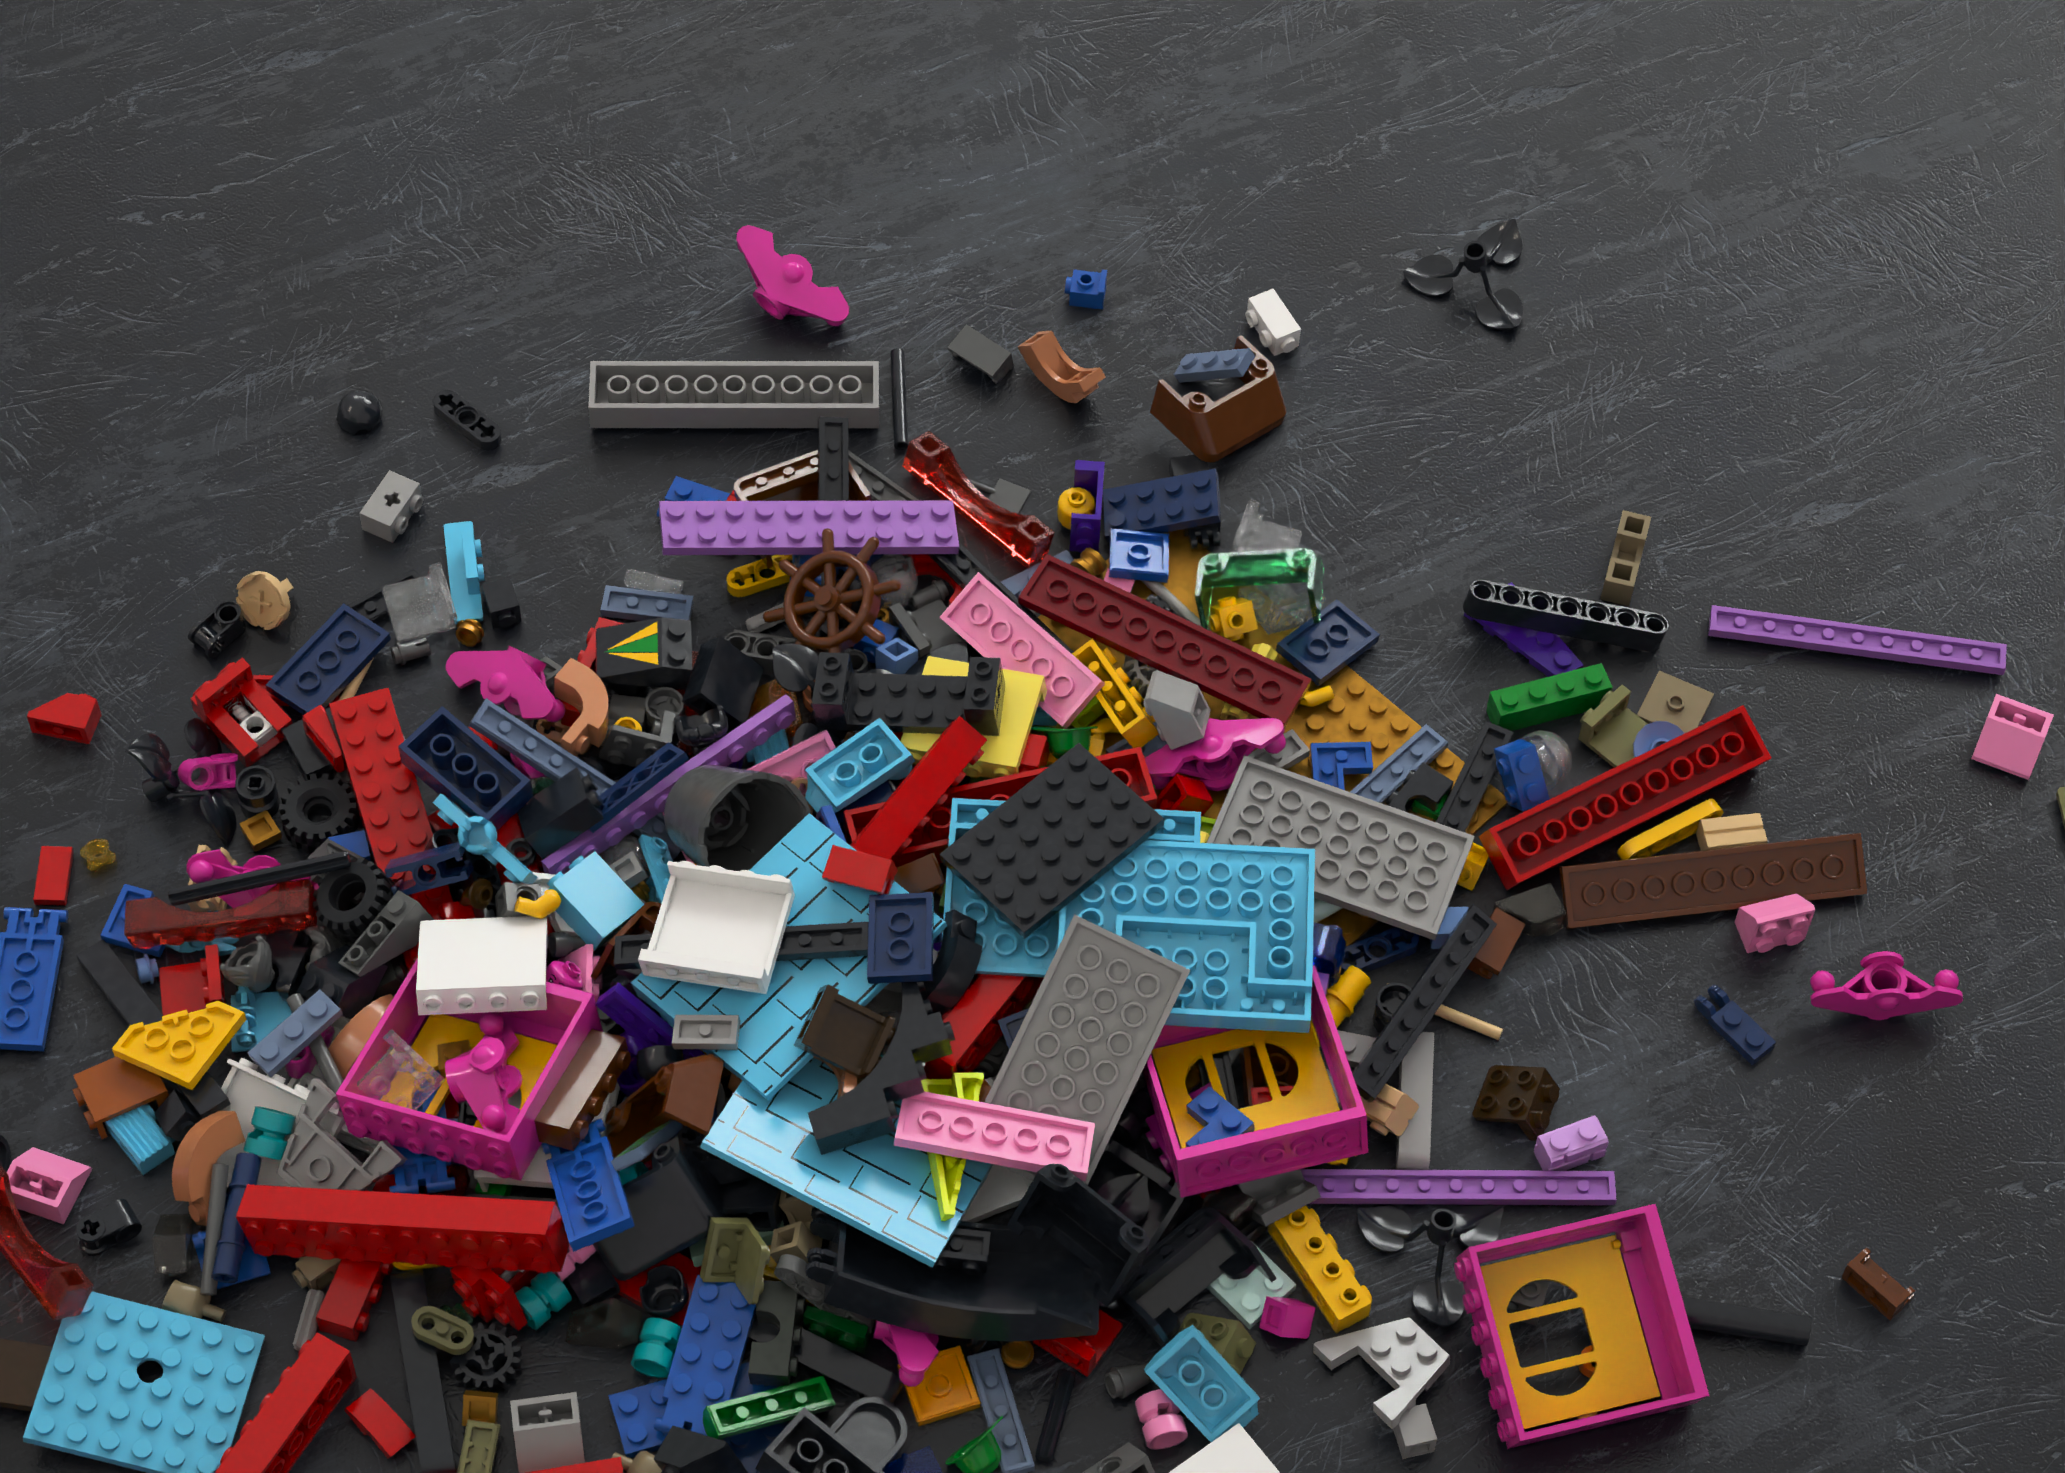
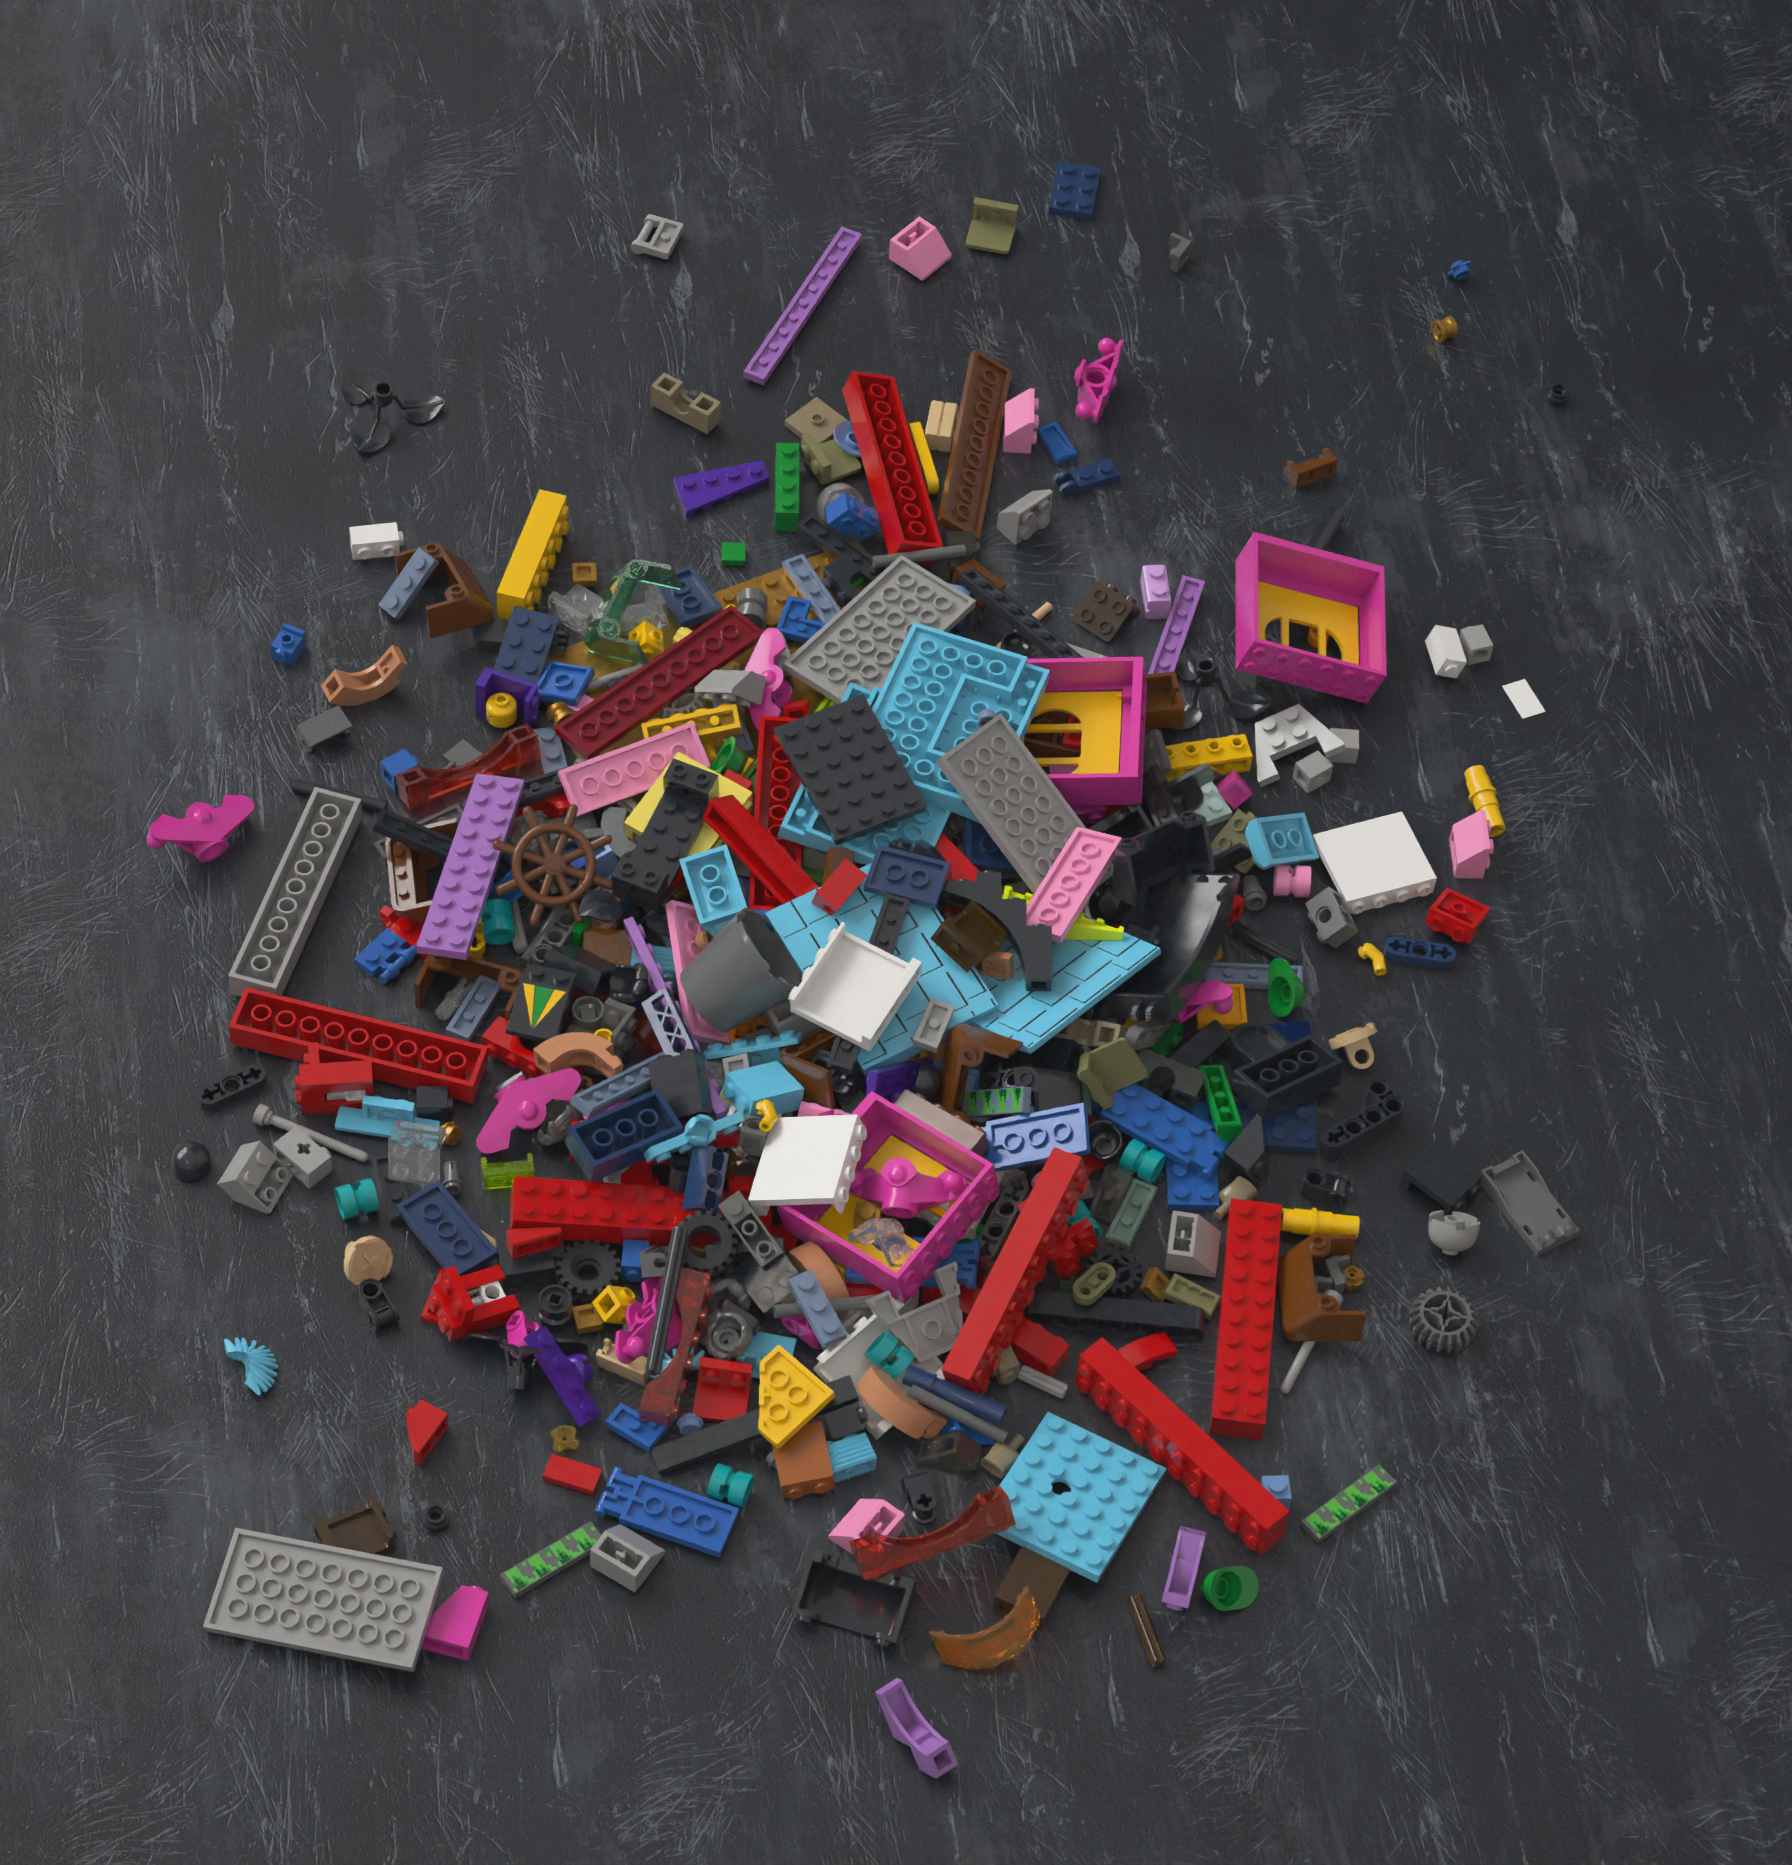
camera: 75 degrees left, 5 degrees down
(68, 1028) = (730, 1485): none -> teal wheel
(116, 544) = (257, 1363): none -> medium azure hair
(164, 824) = (566, 1375): none -> dark purple plate
(279, 844) = (613, 1304): none -> yellow brick
(349, 472) = (255, 1177): none -> light grey slope
(349, 569) = (357, 1198): none -> teal wheel
(434, 692) = (502, 1173): none -> clear neon green hinge
(436, 458) = (264, 1116): none -> light grey piece
(482, 489) = (331, 1085): none -> red brick
(551, 512) = (396, 1051): none -> red brick
(584, 1359) = (1131, 1214): none -> sand green tile
(703, 589) = (471, 968): none -> reddish brown windscreen
(766, 589) = (498, 922): none -> teal wheel
(958, 437) = (396, 764): none -> blue brick
(1195, 964) = (985, 716): none -> sand blue hinge
(1217, 1117) = (1091, 760): blue plate -> none
(1307, 471) = (533, 554): none -> yellow brick
(1319, 534) = (584, 574): none -> pearl gold plate
(1328, 709) = (753, 605): none -> dark grey wheel
(1354, 1404) = (1312, 771): none -> light grey brick
(1373, 1183) = (1163, 701): none -> reddish brown piece
(1424, 676) = (733, 554): none -> green tile
(1492, 861) = (921, 555): none -> dark grey piece
(1565, 615) = (724, 451): black beam -> none
(1624, 967) = (1026, 516): none -> light grey slope
(1775, 976) = (1056, 443): none -> blue tile
(1886, 469) = (663, 240): none -> light grey plate

